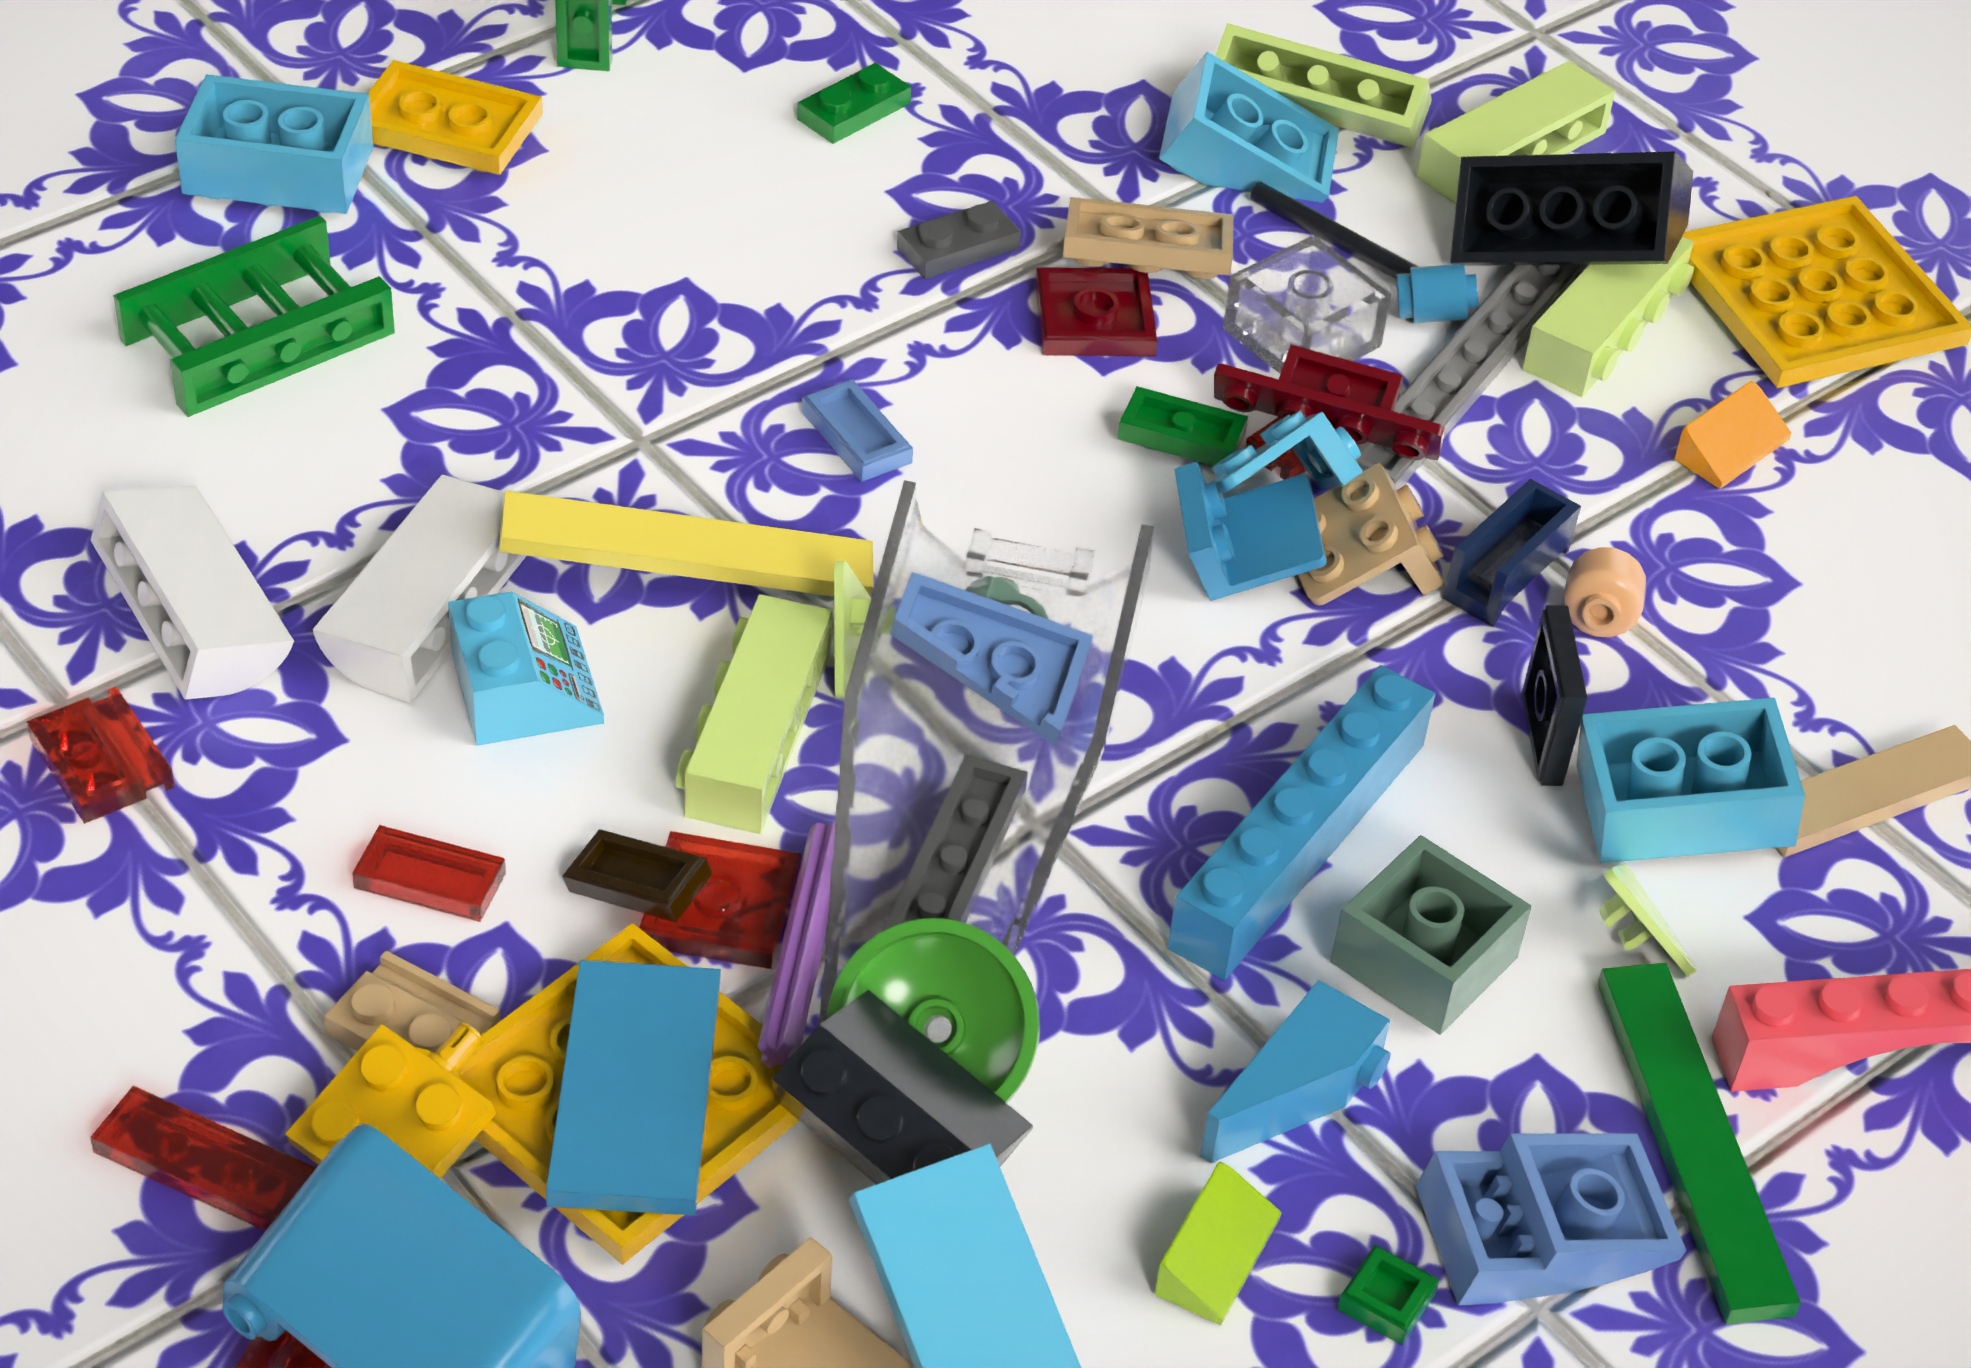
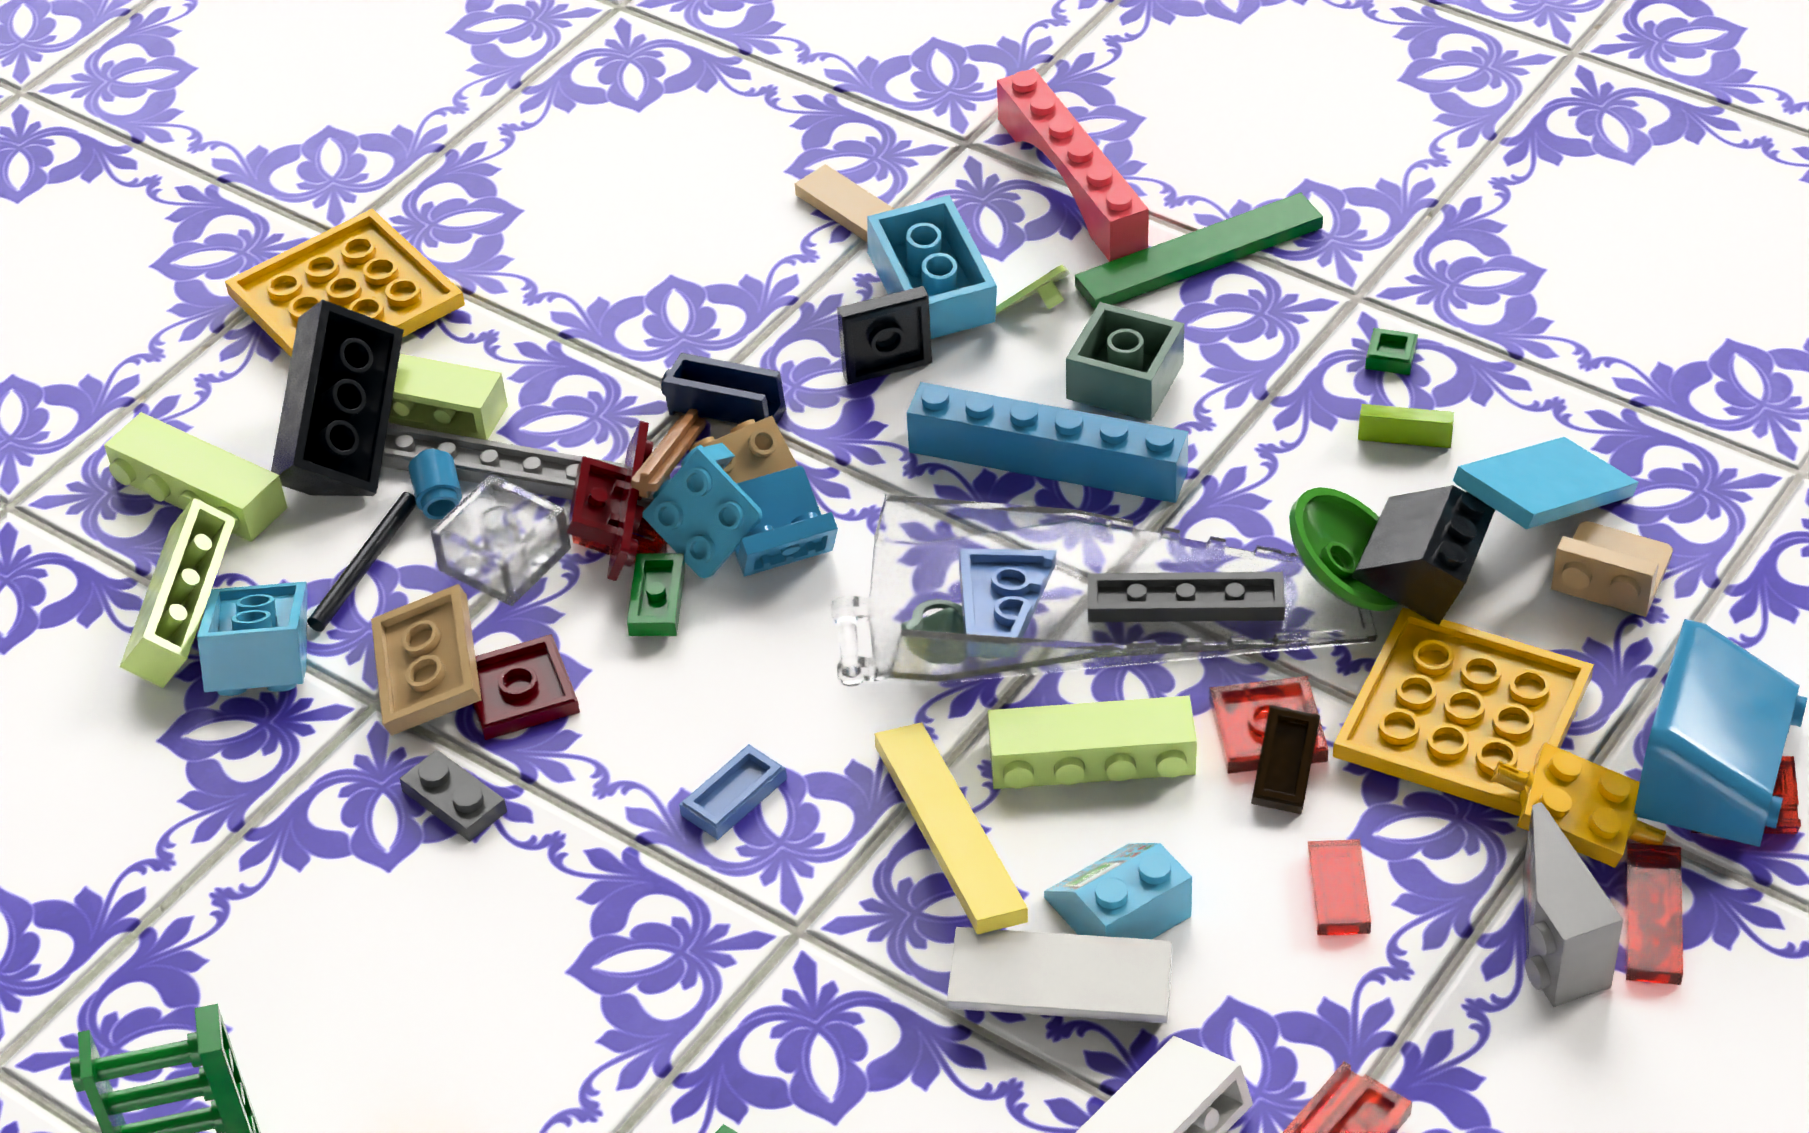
camera: 100 degrees left, 0 degrees up
(229, 1012) = (1568, 917): none -> light grey slope
(408, 1003) = (1472, 849): tan plate -> none
(635, 1088) = (1475, 687): dark azure tile -> none
(800, 951) = (1298, 650): medium lavender axle -> none
(850, 613) = (970, 708): yellowish green piece -> none
(854, 103) = (269, 922): green plate -> none
(1300, 1073) = (1262, 406): dark azure slope -> none
(1394, 455) = (668, 453): none -> medium nougat axle
(1546, 1215) = (1304, 293): medium blue slope -> none
(1605, 585) = (748, 341): light nougat head -> none
(1732, 436) = (535, 318): light orange slope -> none

